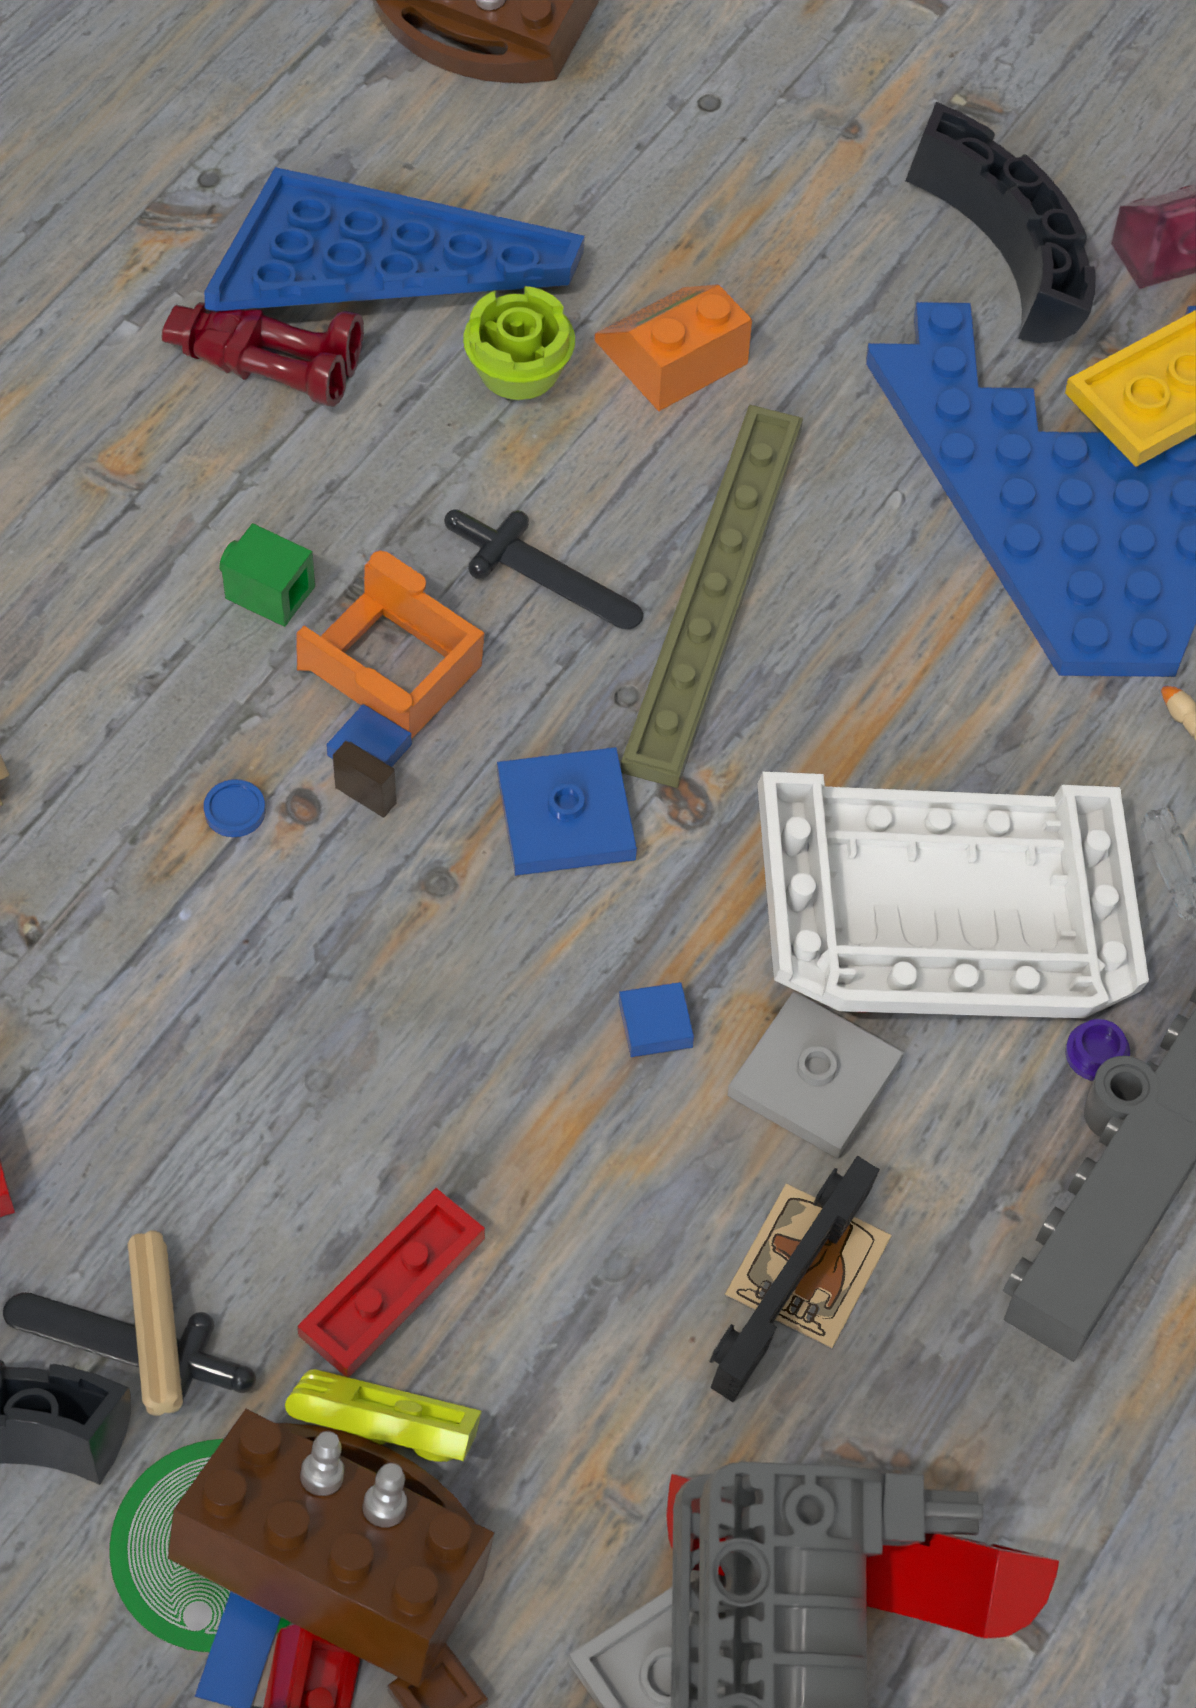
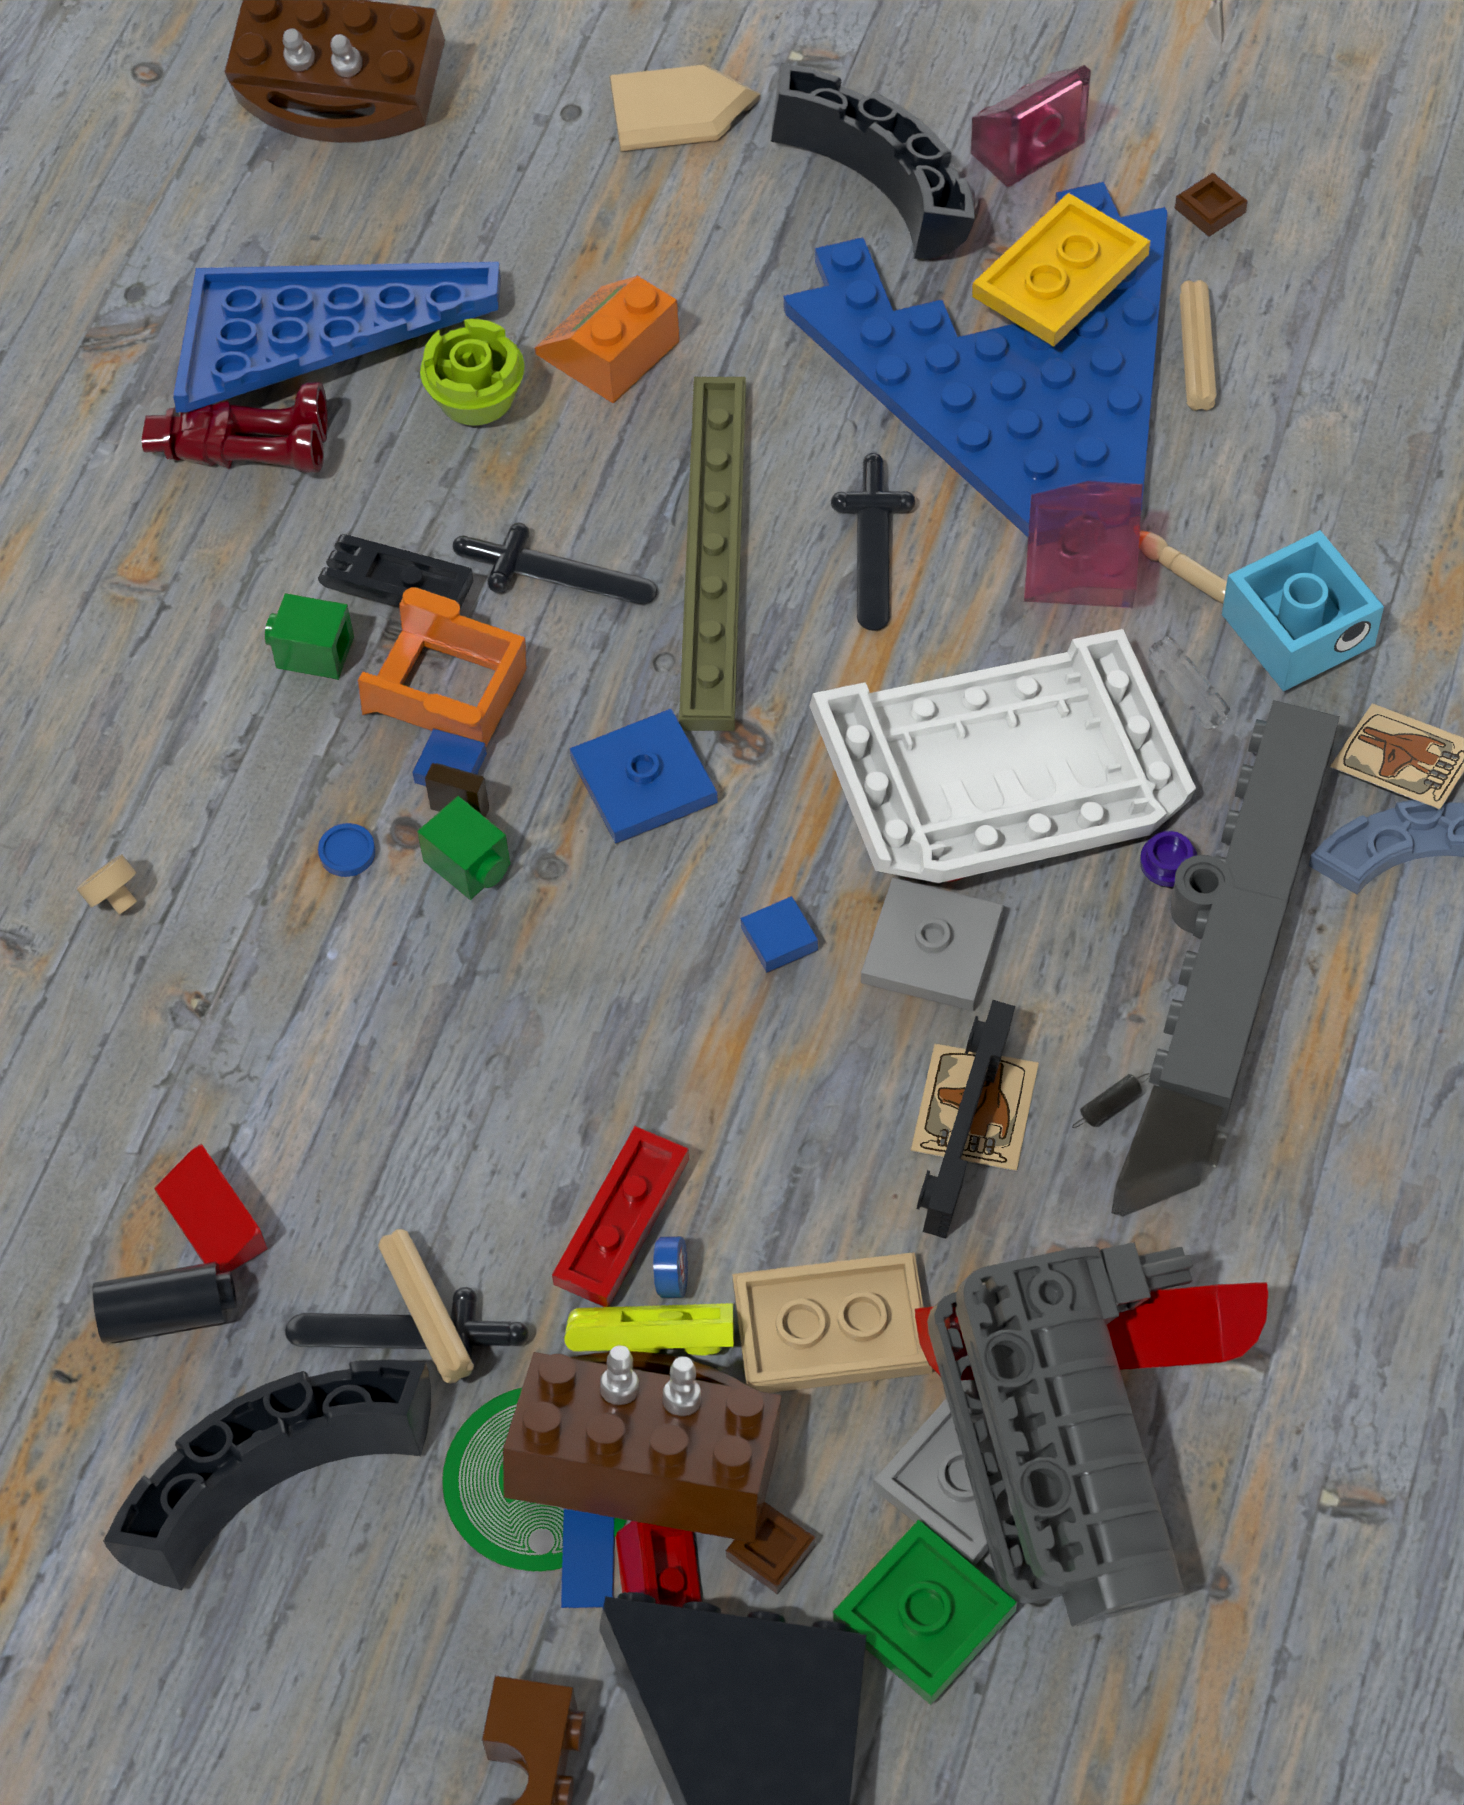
camera: 10 degrees left, 0 degrees up
(353, 839) = (464, 848): none -> green brick
(364, 526) = (387, 572): none -> black hinge
(426, 1353) = (670, 1267): none -> blue tile
(577, 1462) = (830, 1323): none -> tan tile
(819, 121) = (676, 106): none -> tan tile
(885, 621) = (873, 512): none -> black sword
(957, 1299) = (1111, 1100): none -> clear smoke piece
(1001, 1374) = (1169, 1150): none -> clear smoke slope
(1105, 686) = (1084, 545): none -> clear pink slope

